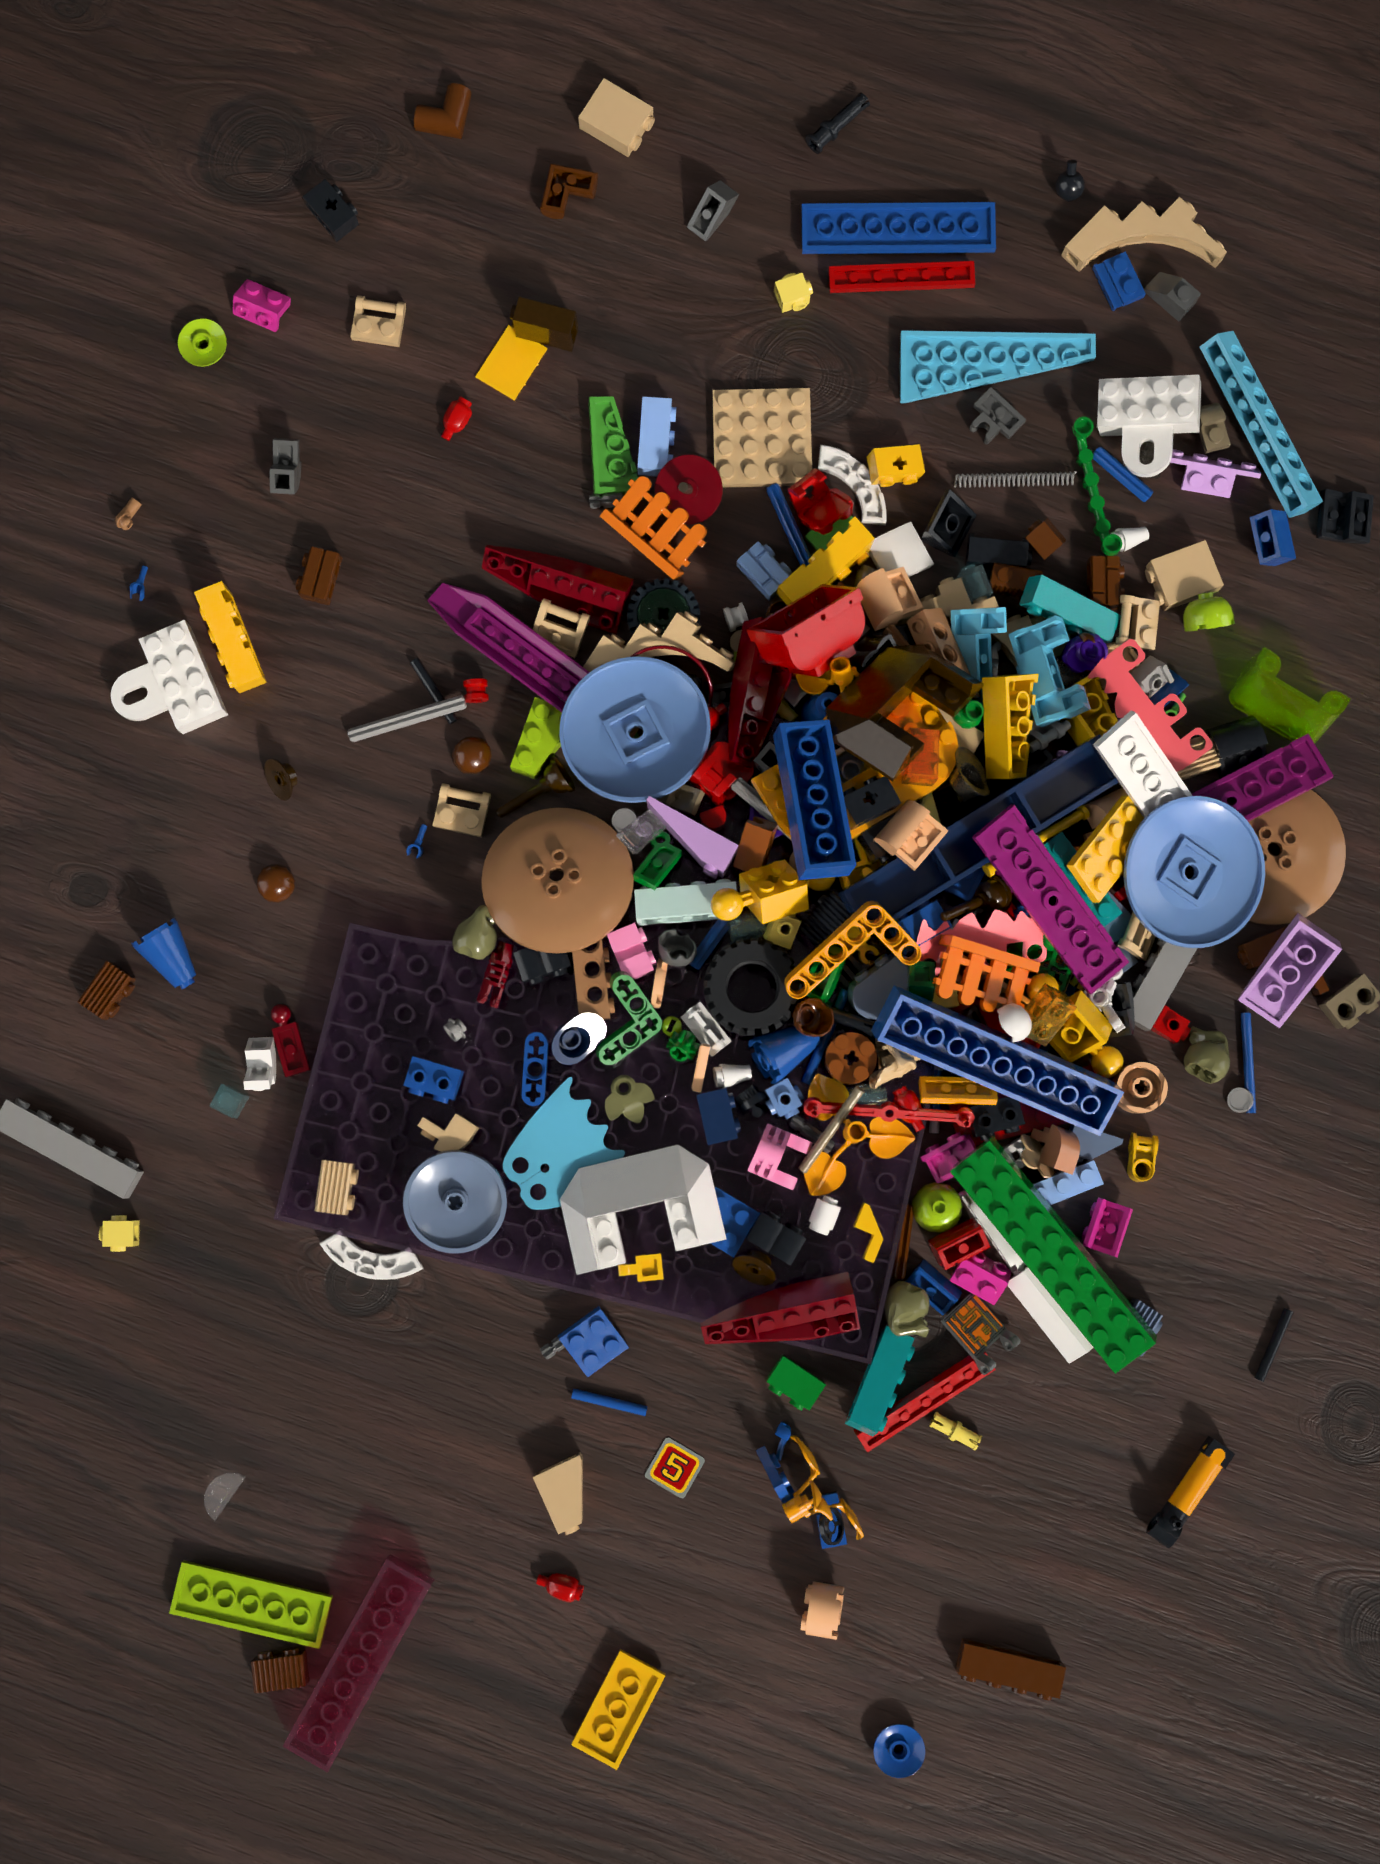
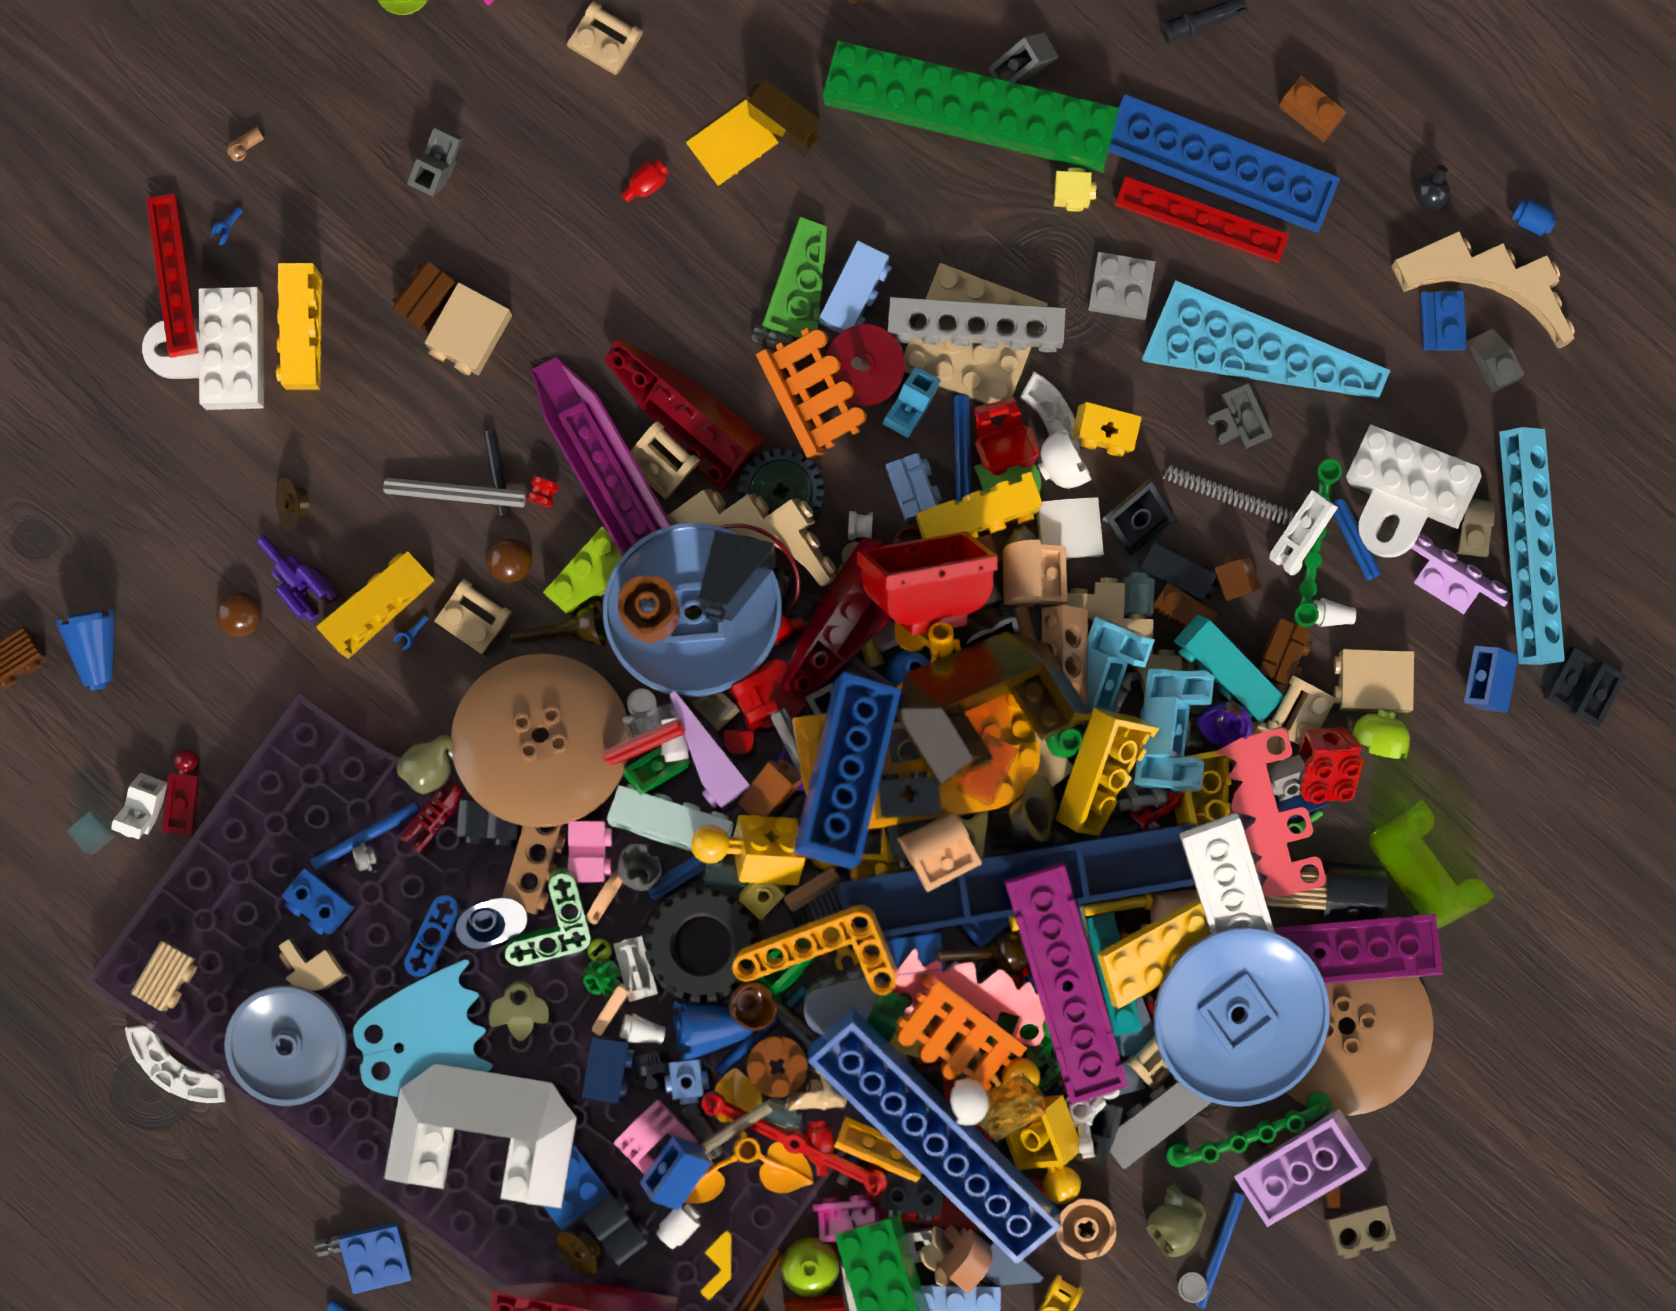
camera: 25 degrees right, 0 degrees up
(113, 638) = (172, 276): none -> red plate
(310, 837) = (296, 580): none -> dark purple plant
(364, 588) = (467, 330): none -> tan brick
(381, 830) = (375, 604): none -> yellow wedge
(449, 1012) = (365, 835): none -> blue piece
(596, 727) = (650, 592): none -> dark orange brick
(641, 846) = (644, 742): none -> red axle
(647, 1268) = (462, 1203): yellow plate -> none
(658, 684) = (733, 574): none -> black slope
(663, 837) = (675, 749): none -> white cone
(687, 258) = (970, 106): none -> green brick
(737, 504) = (912, 402): none -> dark azure brick
(769, 412) = (1050, 320): none -> light grey brick
(806, 1173) = (675, 1172): none -> blue brick
(820, 908) = (812, 889): none -> medium nougat axle
(860, 352) = (1121, 286): none -> light grey plate
(874, 501) = (1063, 461): none -> white cylinder
(951, 157) = (1312, 109): none -> dark orange brick
(1057, 748) = (1150, 817): none -> red piece
(1081, 483) = (1302, 532): none -> white plate
(1156, 173) = (1534, 216): none -> blue brick
(1163, 1029) = (1142, 1165): red brick -> none
(1182, 652) = (1333, 767): none -> red piece
(1278, 919) = (1317, 1104): none -> green bar

